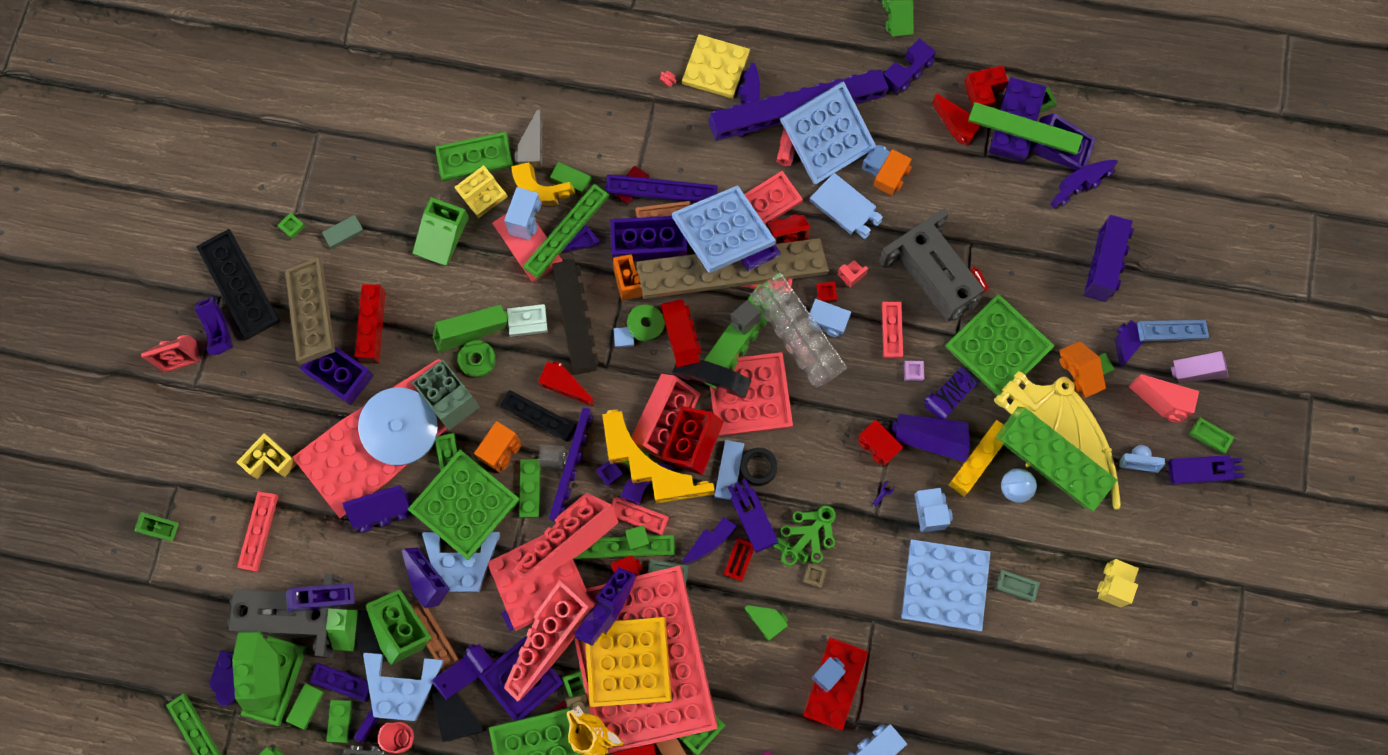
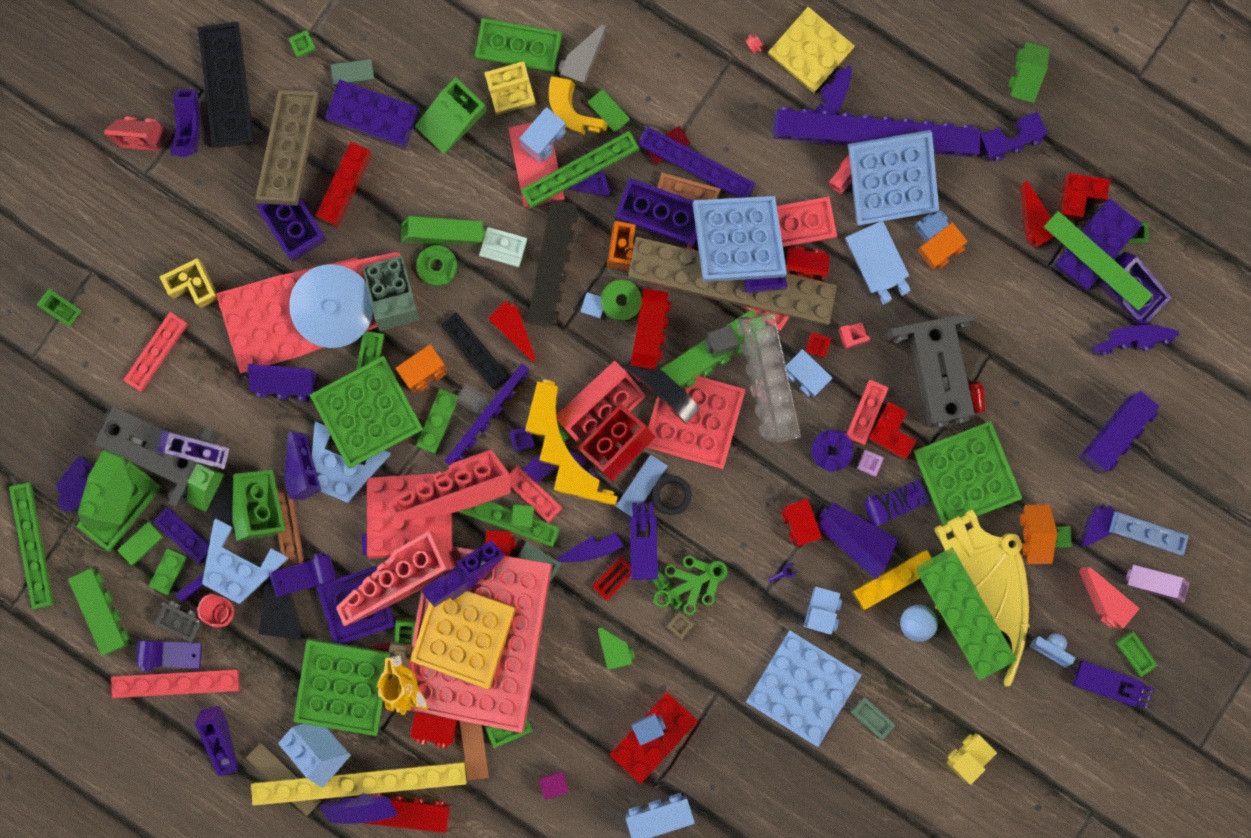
camera: 20 degrees right, 10 degrees up
(372, 257) = (372, 114): none -> dark purple brick
(882, 382) = (830, 461): none -> dark purple plate
(918, 340) = (886, 433): none -> red brick

